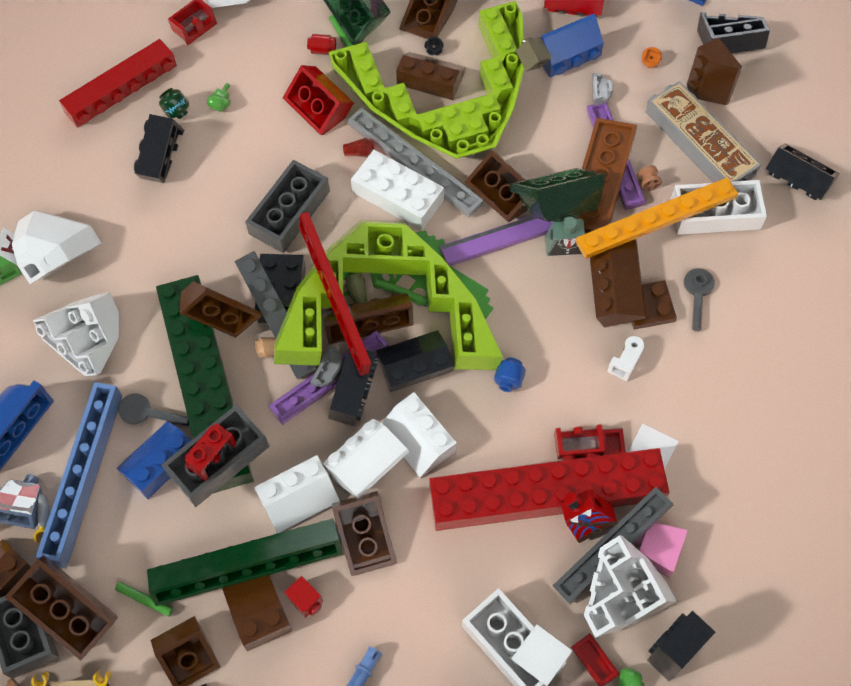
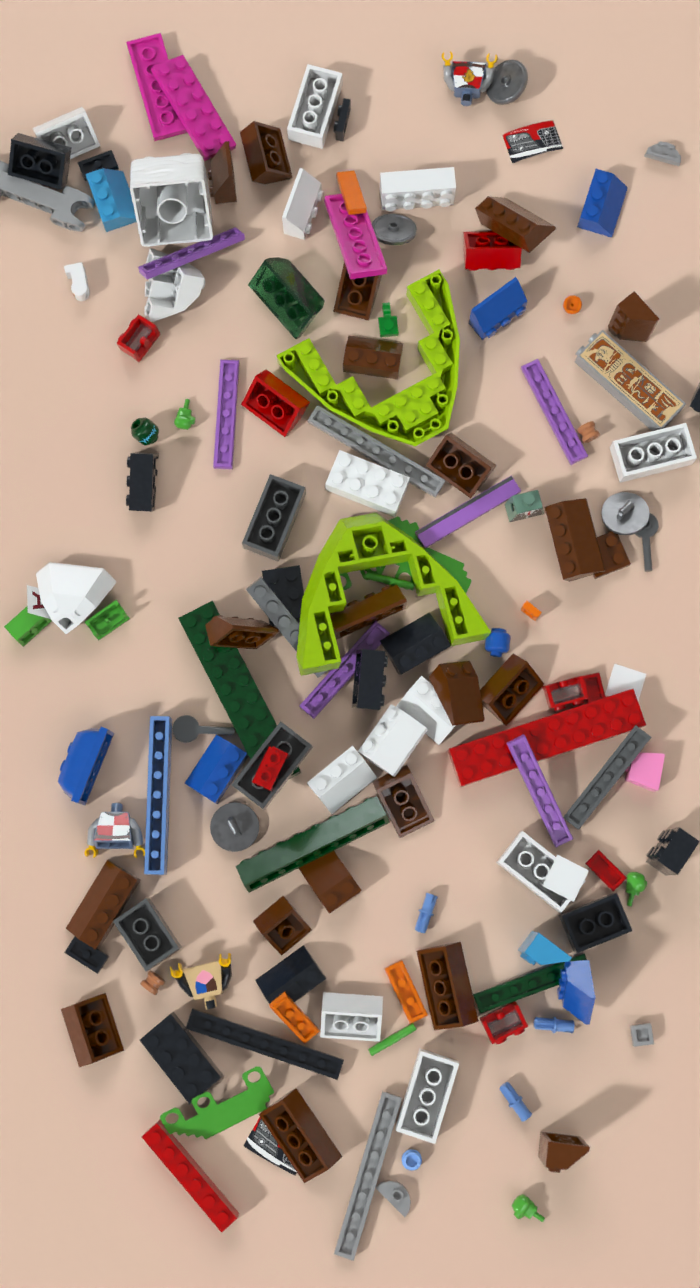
camera: 10 degrees left, 15 degrees up
(61, 607) = (177, 910): reddish brown slope -> none
(80, 279) = (107, 620): none -> bright green hinge
(82, 332) = (123, 668): white brick -> none
(118, 83) = (87, 417): red brick -> none
(143, 598) = (235, 887): bright green piece -> none
(159, 527) = (234, 827): none -> flat silver shield
(264, 105) = (226, 414): none -> medium lavender tile
(265, 347) = (285, 653): light nougat cone -> none
(304, 597) = (367, 864): red brick -> none
(321, 44) = (265, 343): red brick -> none
(329, 368) = (347, 665): light grey plate -> none
(334, 294) = (340, 606): red tile -> none
(340, 32) = (282, 329): bright green piece -> none
(356, 287) = (351, 586): olive cone -> none
(359, 148) = (324, 446): clear red cone -> none
(434, 41) = (369, 331): black plate -> none
(453, 47) = (387, 324): none -> green plate
(453, 416) = (458, 692): none -> reddish brown slope
(514, 428) = (510, 689): none -> reddish brown slope
(528, 547) = (539, 790): none -> medium lavender tile
(533, 53) = (465, 326): dark tan brick -> none
(554, 348) = (530, 611): none -> orange tile
(561, 194) = (515, 469): clear green windscreen -> none
(587, 514) = (583, 756): red torso -> none
(601, 89) = (532, 346): light grey plate -> none
(607, 154) = (546, 438): dark orange plate -> none
(624, 589) = (621, 812): white brick -> none
(630, 355) = (597, 603): white leg -> none
(656, 218) = (602, 477): light orange plate -> none
(678, 265) = (625, 513): none -> shield
(737, 34) = (643, 269): black wedge -> none

